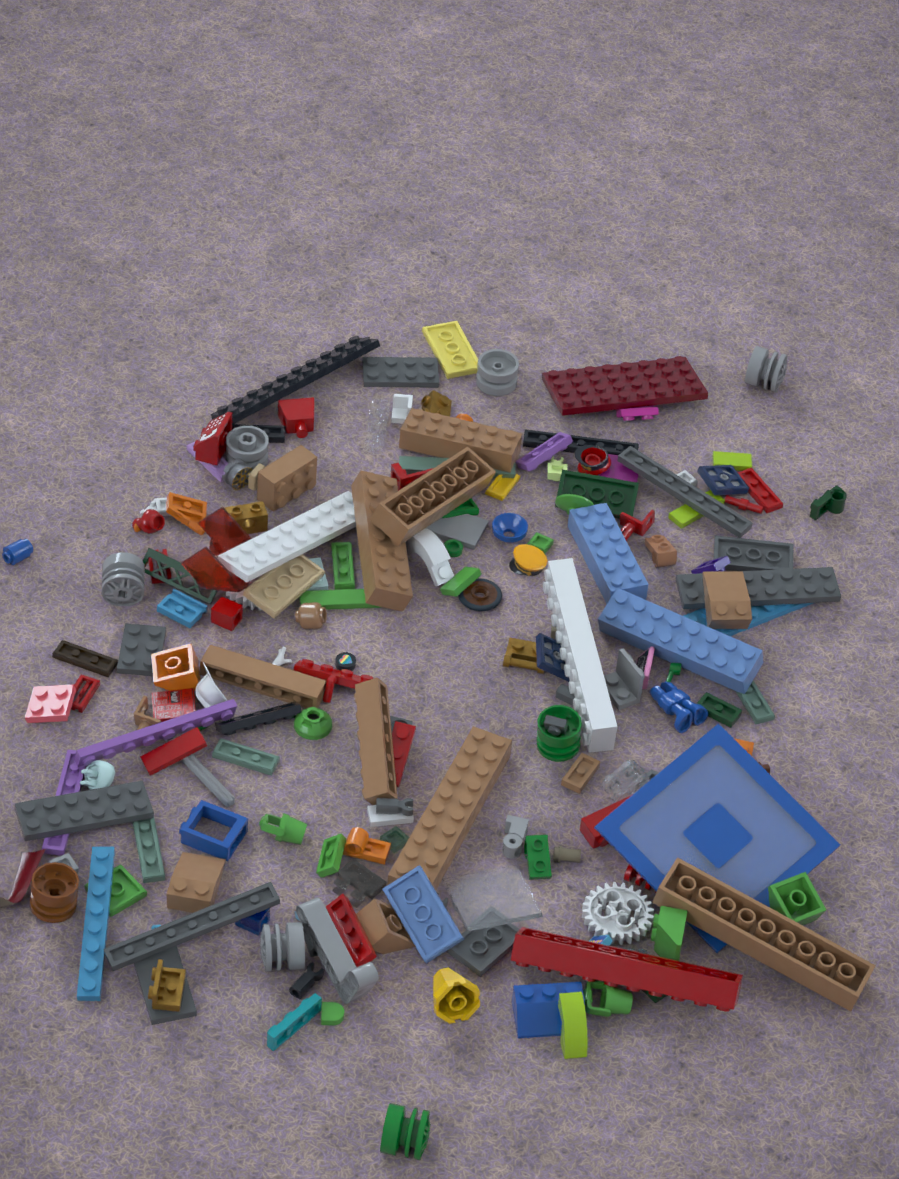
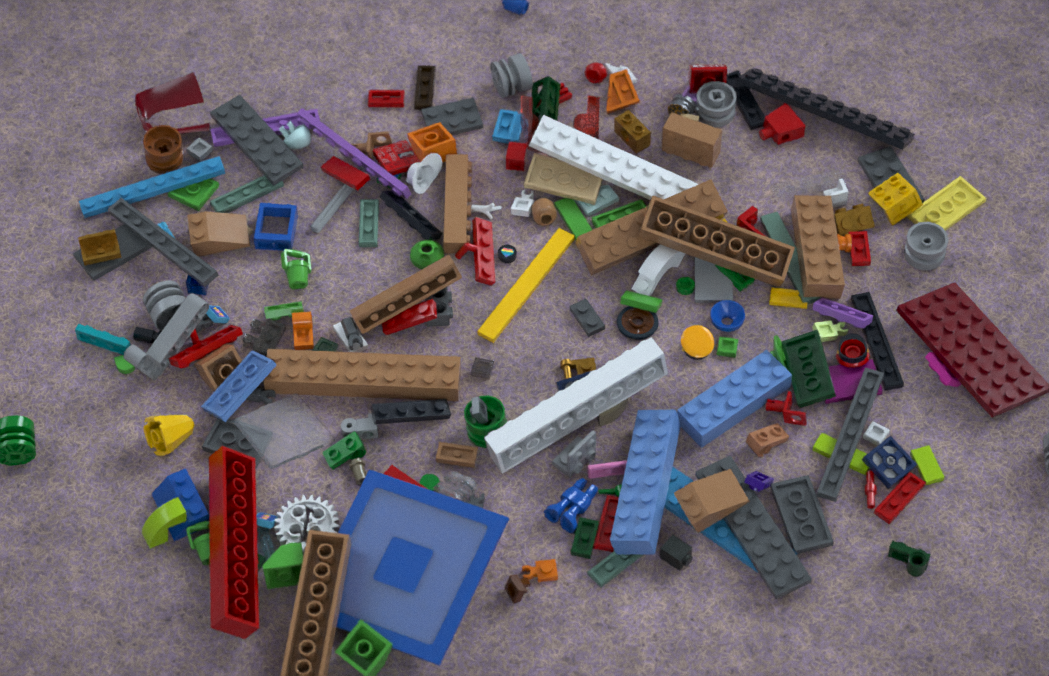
camera: 75 degrees right, 10 degrees up
(50, 703) = (362, 82): plate -> none
(291, 629) = (522, 205): none -> white plate
(393, 660) = (525, 285): none -> yellow tile
(430, 370) = (896, 198): none -> yellow bracket
(456, 628) = (587, 317): none -> dark grey plate
(478, 416) = (860, 249): none -> red plate
(480, 721) = (482, 368): none -> clear smoke tile
(515, 789) = (410, 411): none -> black plate
(602, 802) = (429, 481): none -> green tile
(700, 685) = (606, 523): none -> red tile
(769, 647) = (676, 553): none -> pearl dark grey brick

